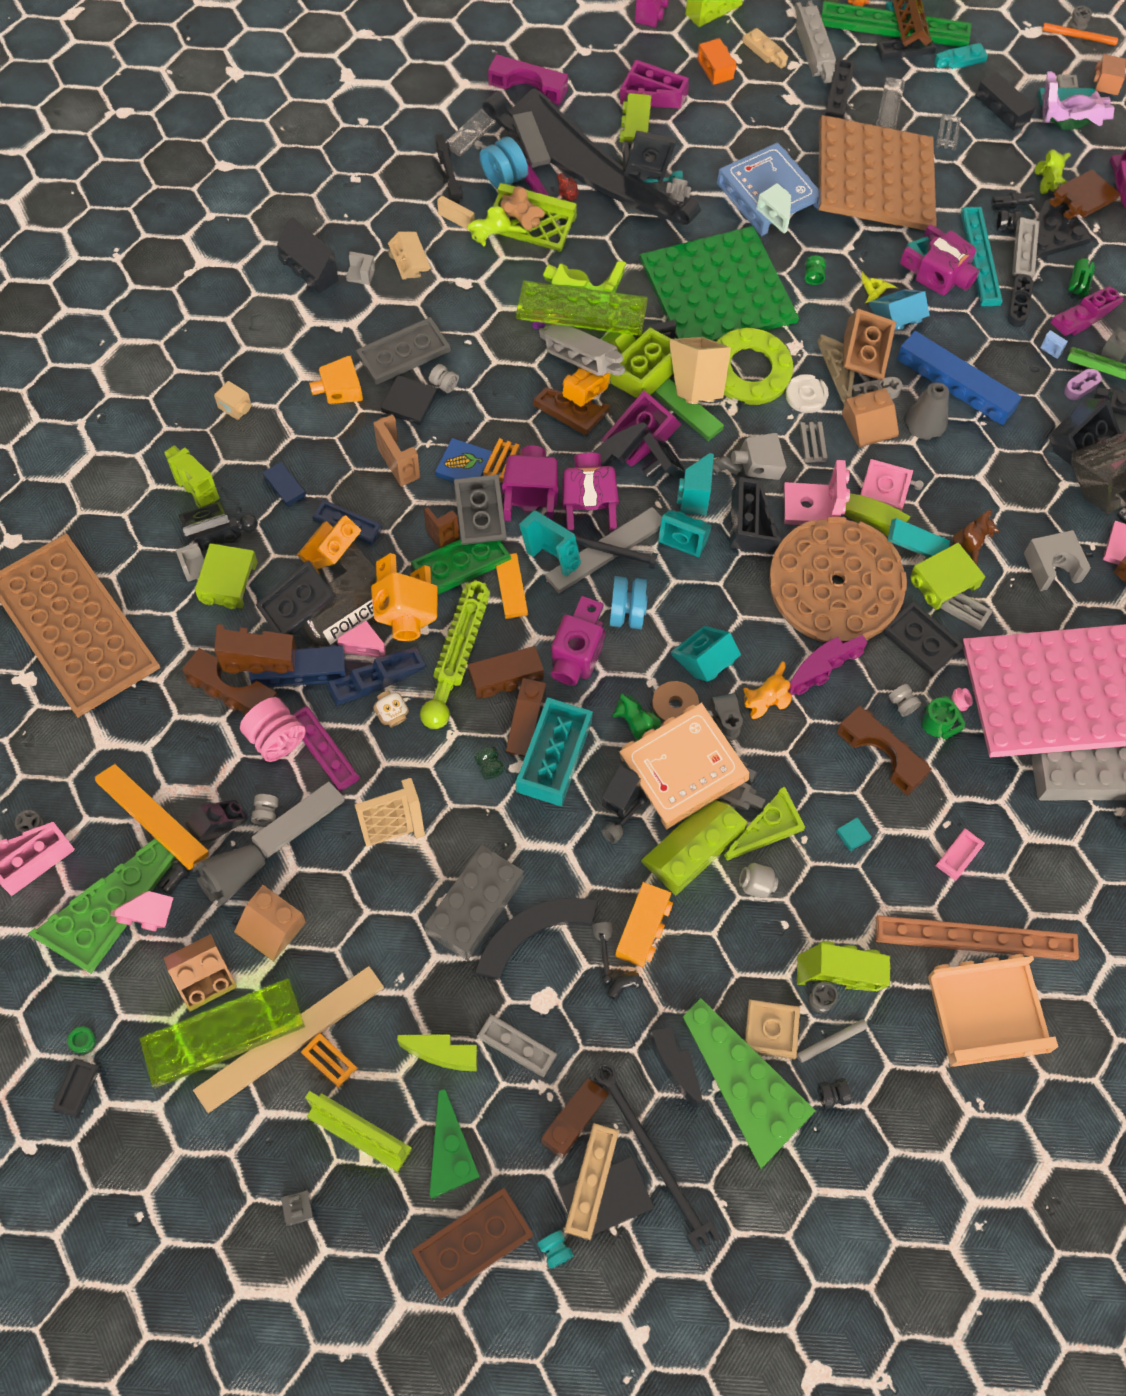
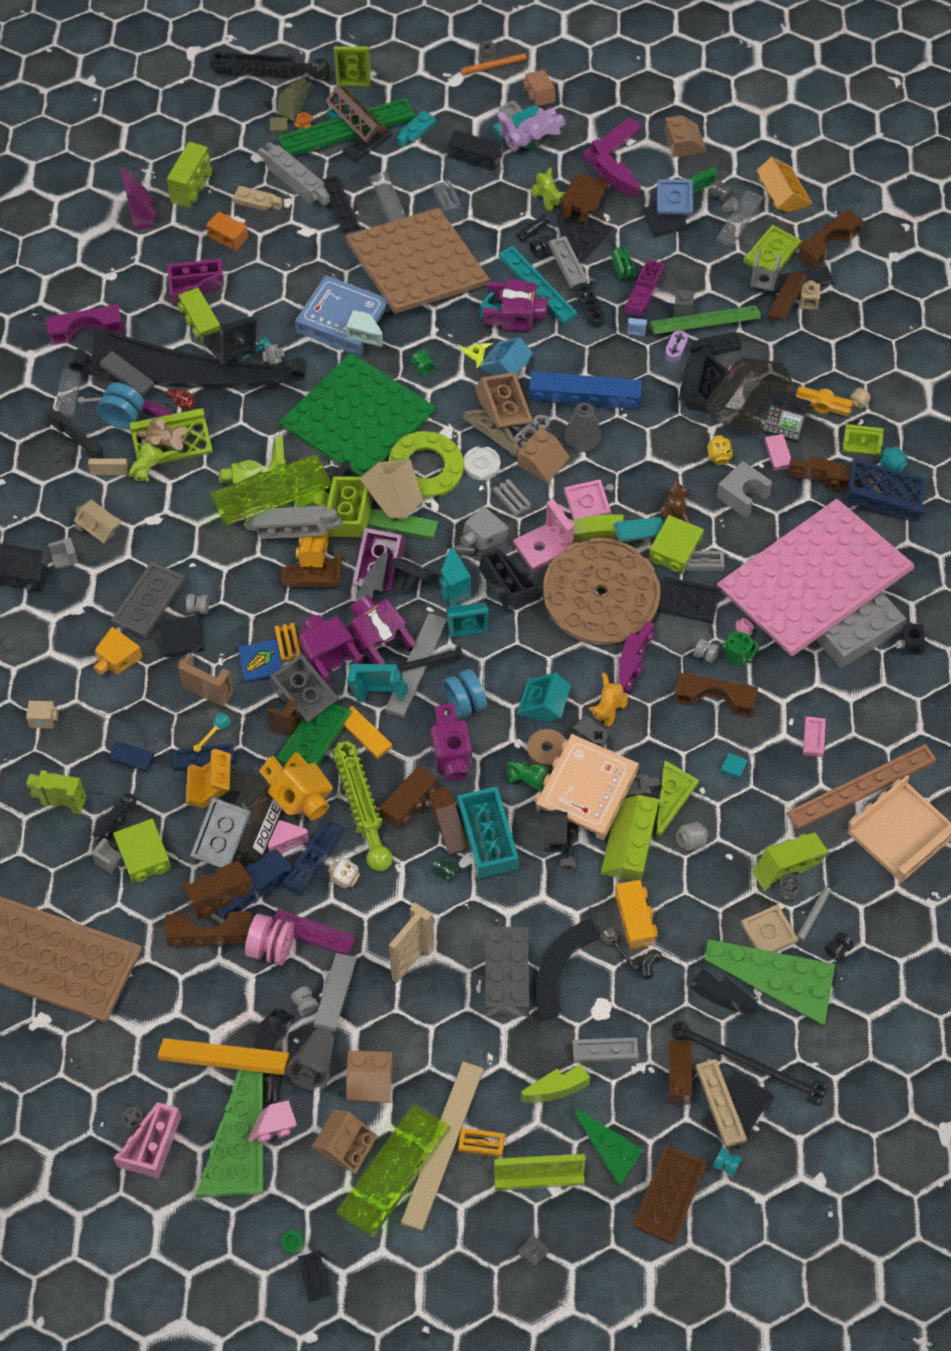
camera: 30 degrees left, 5 degrees down
(203, 518) = (91, 817): black tile -> none
(384, 499) = (220, 722): none -> hinge
(1057, 508) = (720, 450): none -> yellow head

